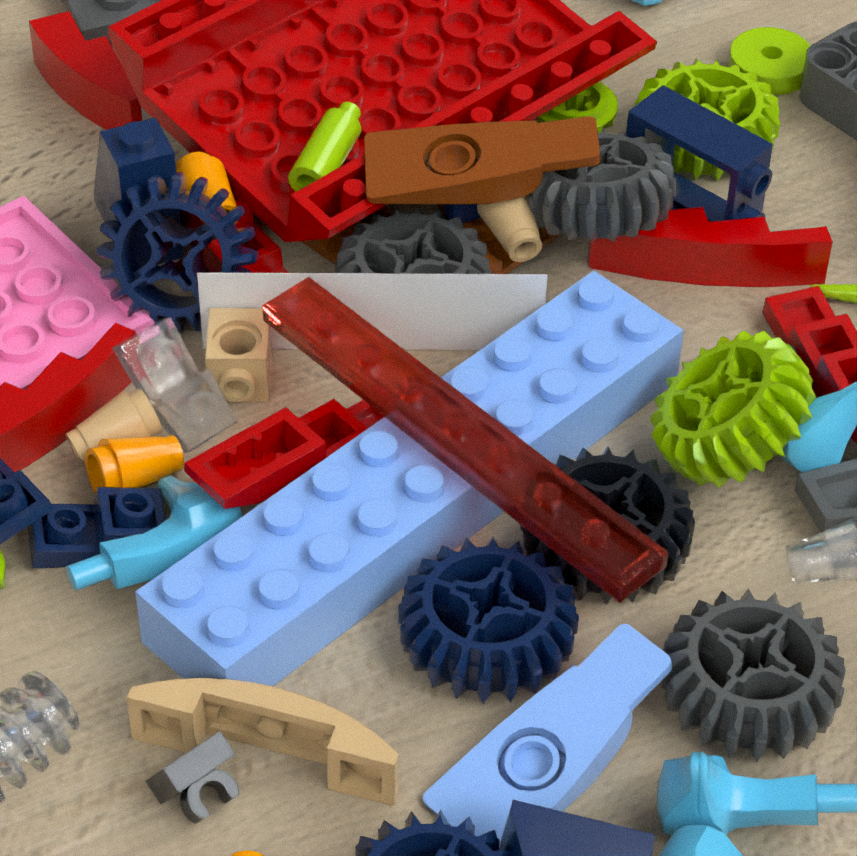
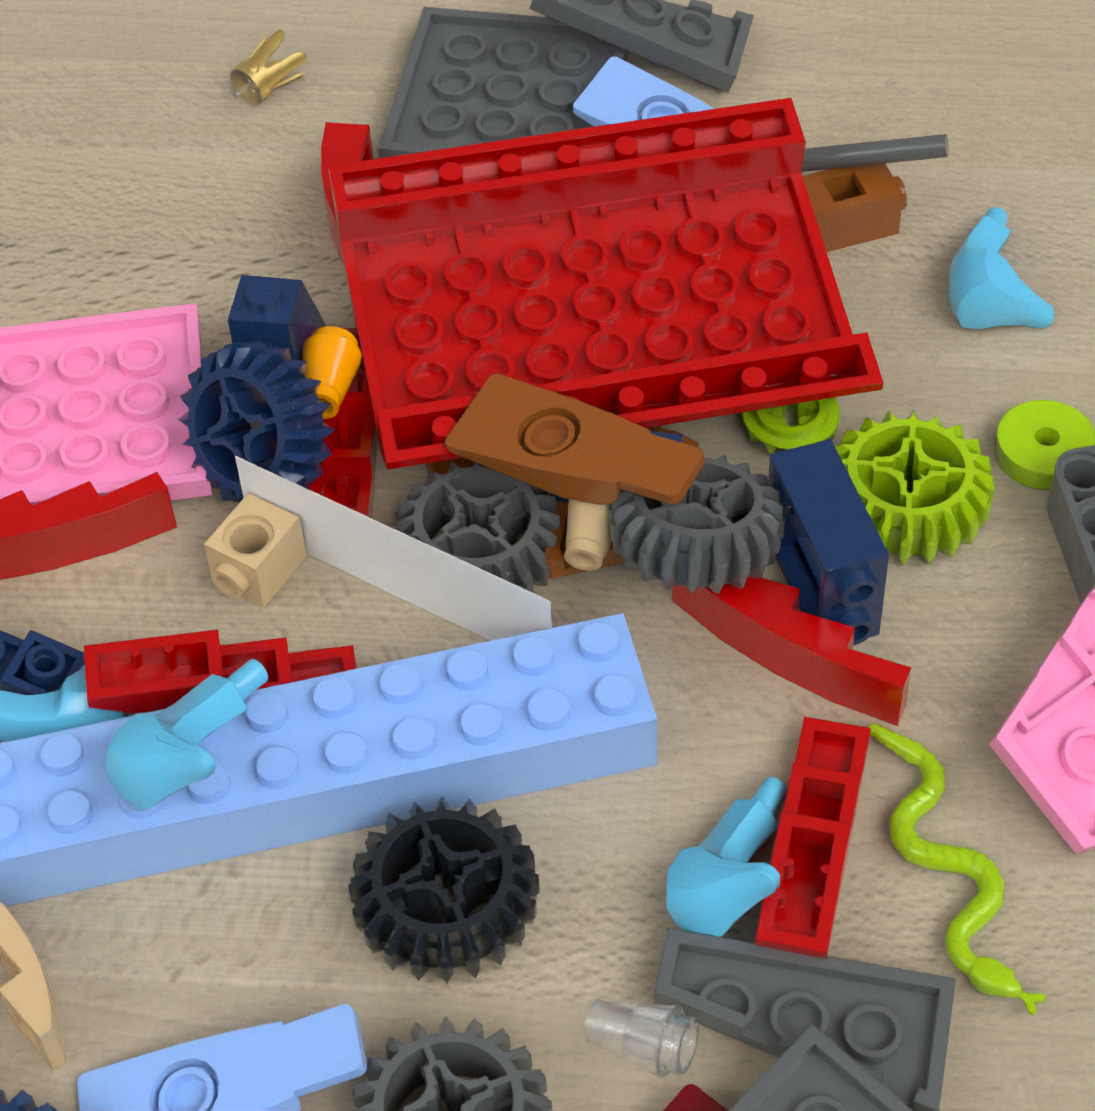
camera: 35 degrees right, 5 degrees up
(120, 417) = (99, 576): tan cone -> none
(132, 461) = (85, 617): light orange cone -> none
(181, 395) = (173, 557): clear slope -> none
(327, 145) = (464, 369): lime cylinder -> none
(345, 497) = (161, 752): none -> medium azure animal
(467, 440) = (340, 748): clear red tile -> none
(488, 619) = (240, 963): dark blue gear -> none
(732, 408) = (641, 828): lime gear -> none

